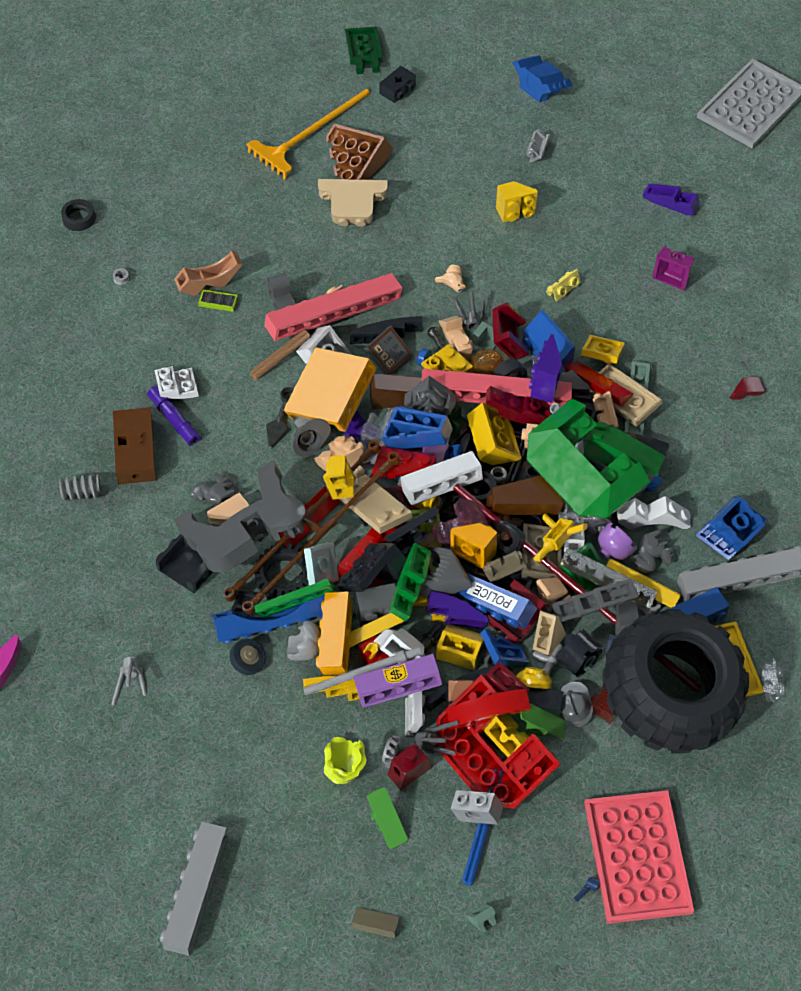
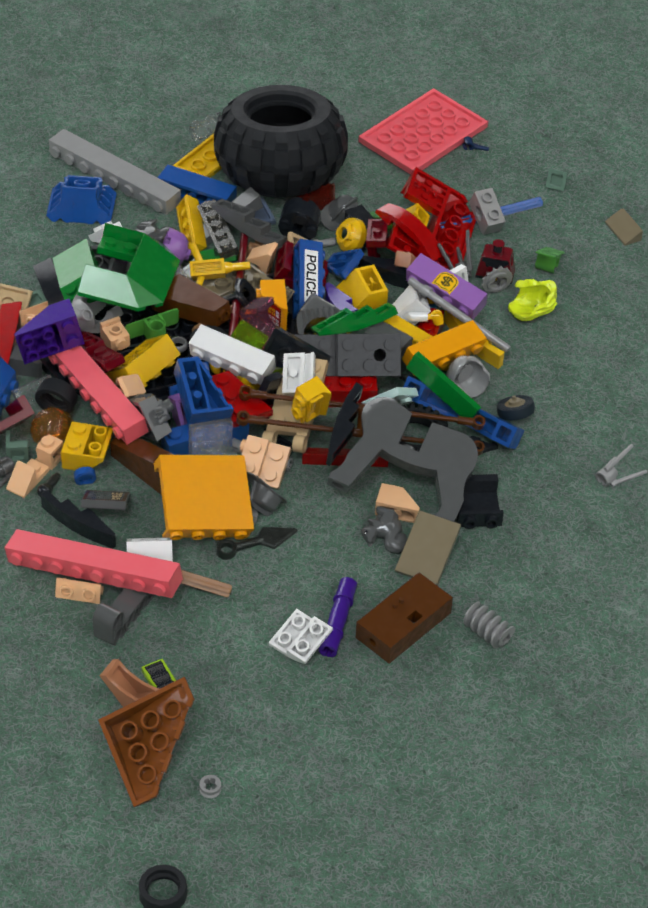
camera: 130 degrees left, 10 degrees down
(173, 497) = (428, 547): none -> dark tan tile
(177, 252) = (145, 736): none -> dark orange slope
(311, 498) = (343, 426): none -> black slope
(381, 499) = (297, 370): none -> white plate
(392, 482) = (270, 384): none -> black tile
(445, 496) = (249, 335): none -> clear neon green slope
(465, 400) = (130, 385): none -> light nougat slope
(520, 469) = (153, 325): none -> bright green piece

